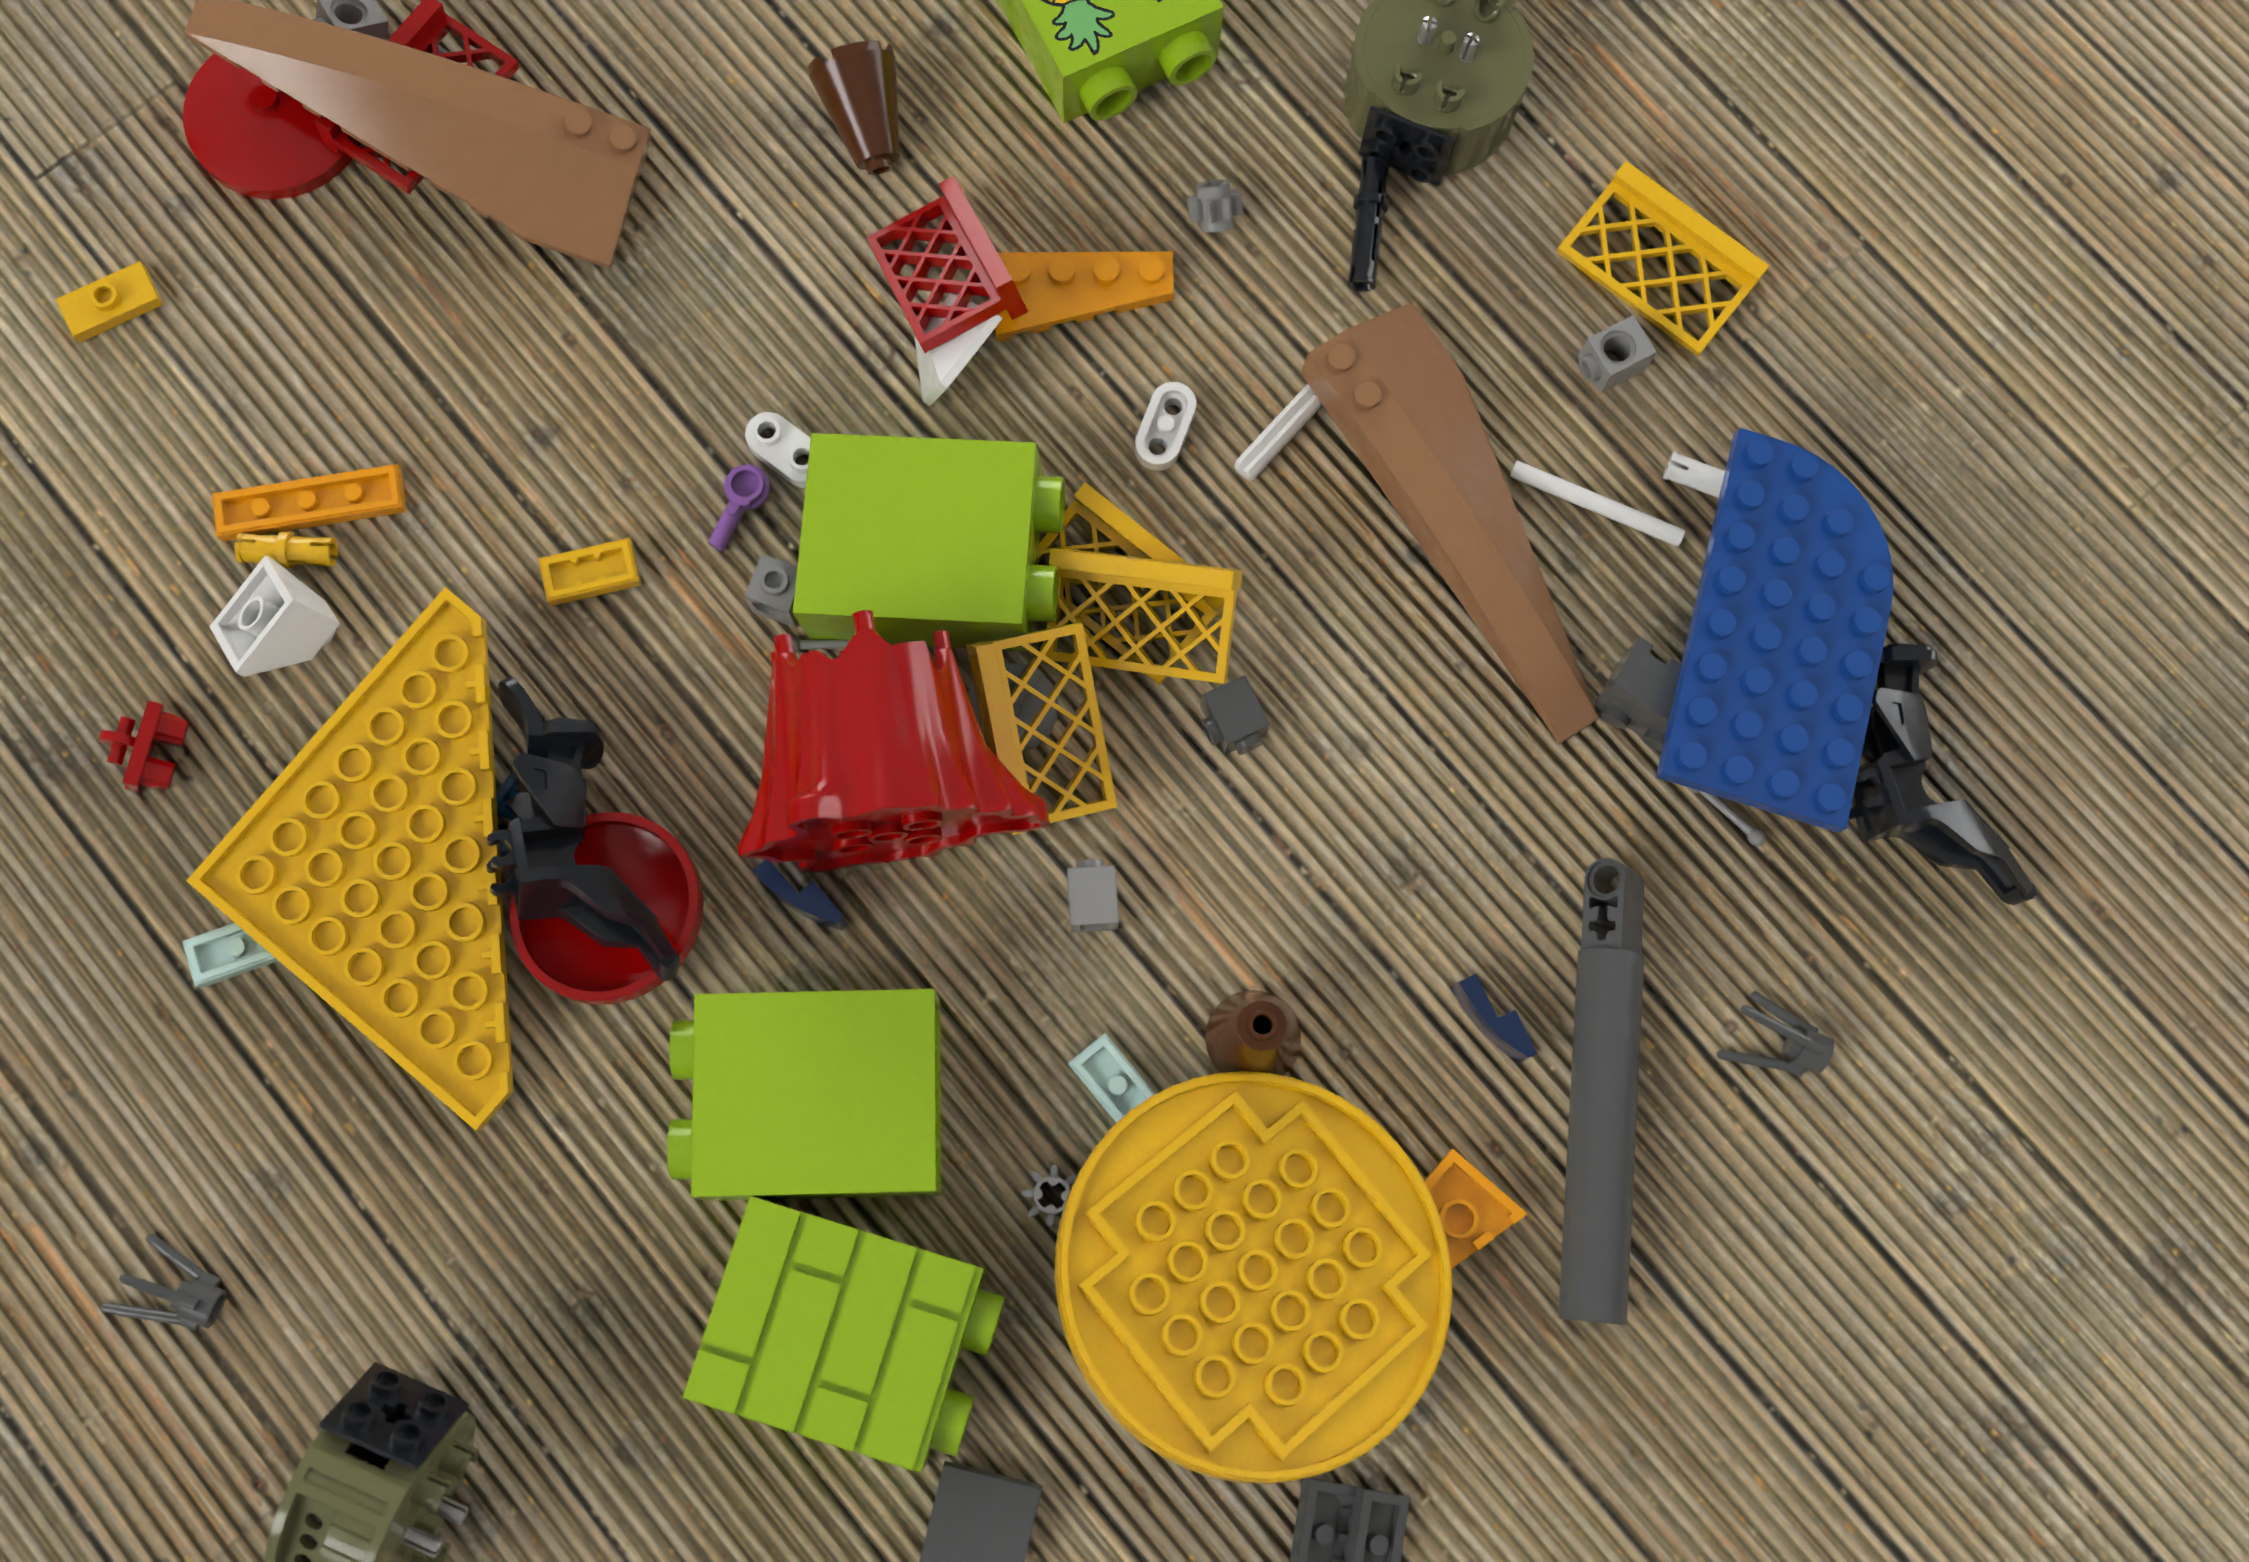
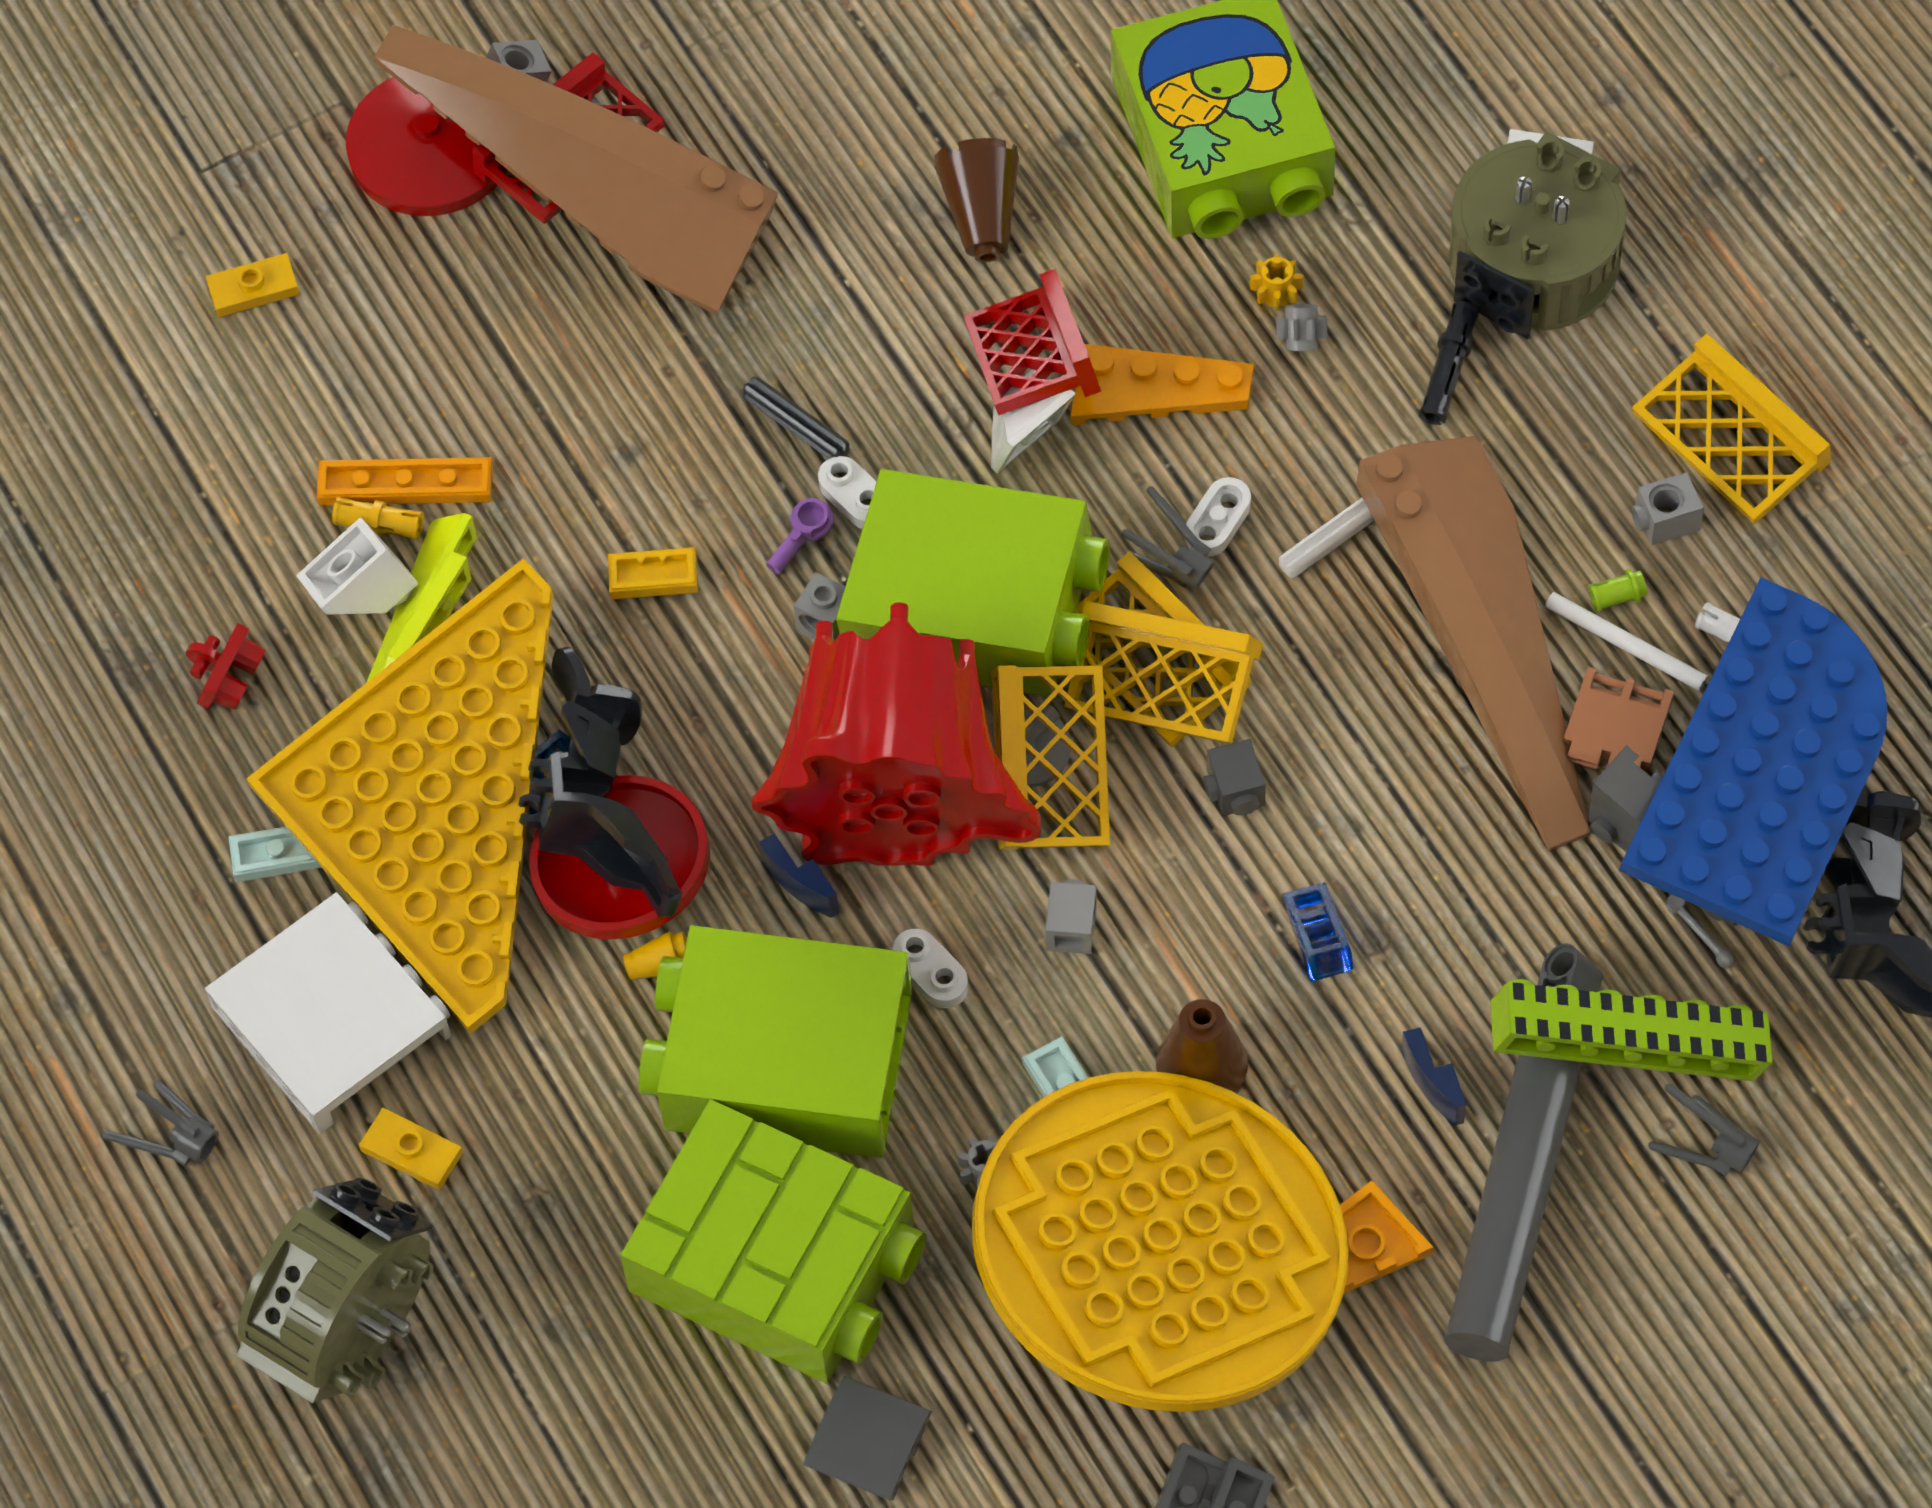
camera: 20 degrees right, 15 degrees down
(319, 1130) = (326, 1008): none -> white panel
(365, 617) = (442, 579): none -> neon yellow wedge
(438, 1271) = (411, 1149): none -> yellow plate
(659, 1012) = (645, 960): none -> yellow cone
(711, 376) = (795, 418): none -> black axle
(954, 974) = (931, 964): none -> white plate
(1144, 487) = (1187, 566): none -> dark grey plant
(1180, 158) = (1276, 281): none -> yellow gear
(1363, 904) = (1323, 957): none -> clear blue slope
(1580, 450) = (1618, 590): none -> lime pin
(1605, 597) = (1610, 720): none -> nougat plate
(1693, 950) = (1630, 1031): none -> lime brick

